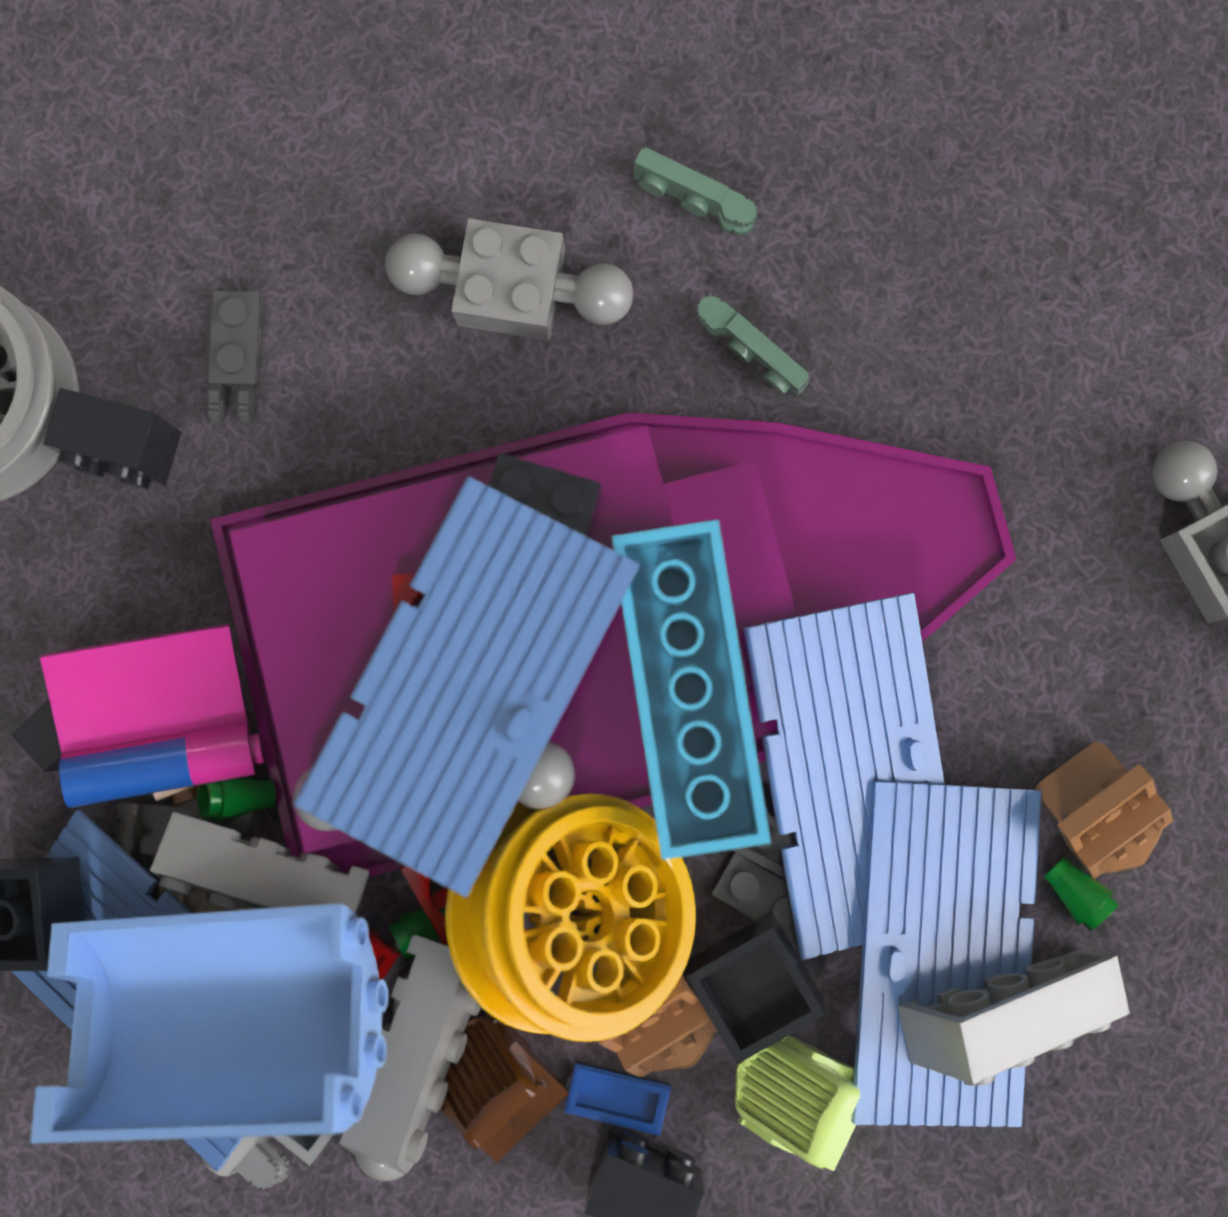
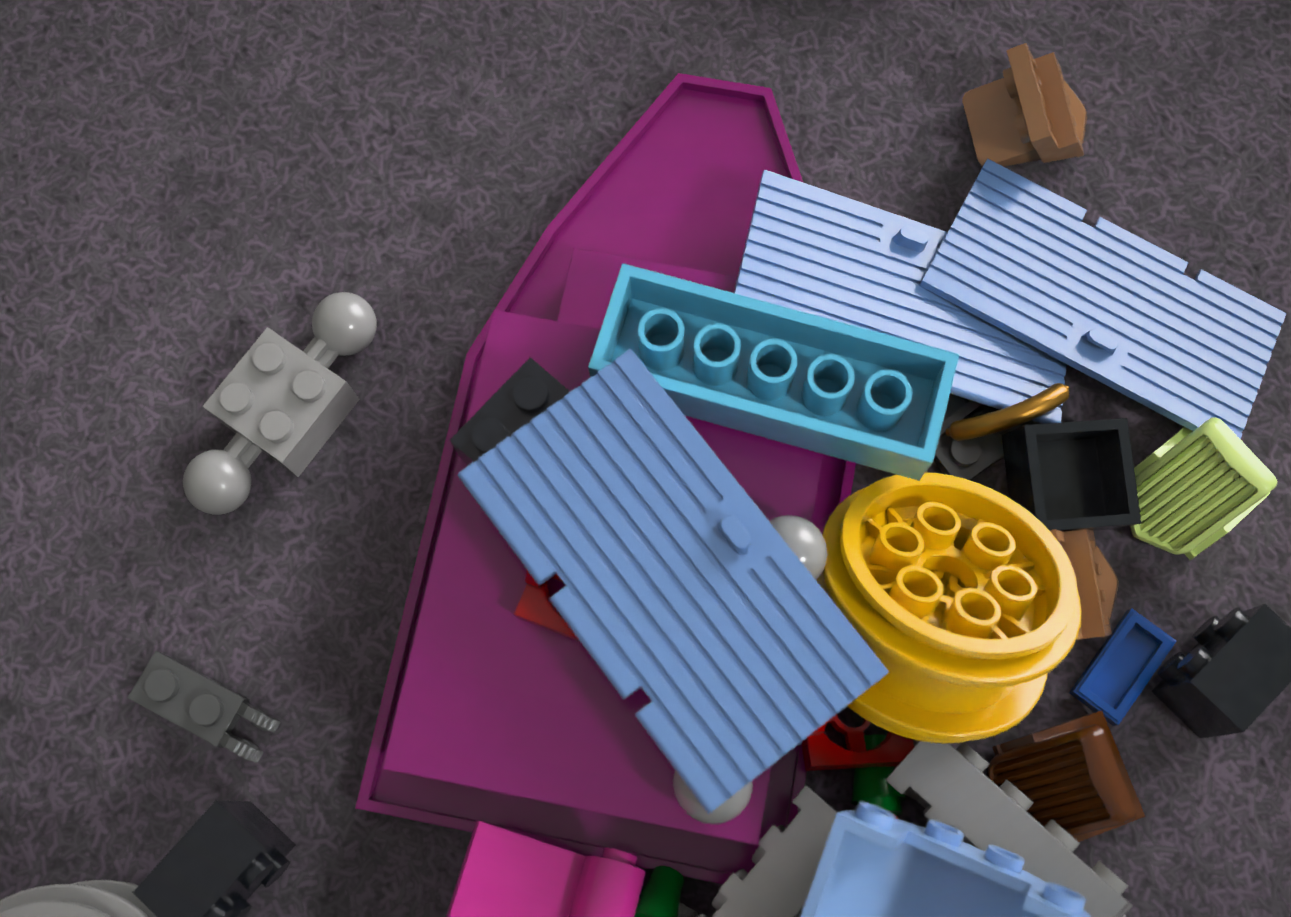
camera: 70 degrees left, 10 degrees down
(698, 192) = (296, 203): sand green hinge -> none
(750, 343) = (463, 217): sand green hinge -> none
(787, 915) = (1009, 416): none -> pearl gold piece
(1015, 1016) = (1190, 265): wedge -> none
(1081, 894) = (1096, 168): green cone -> none

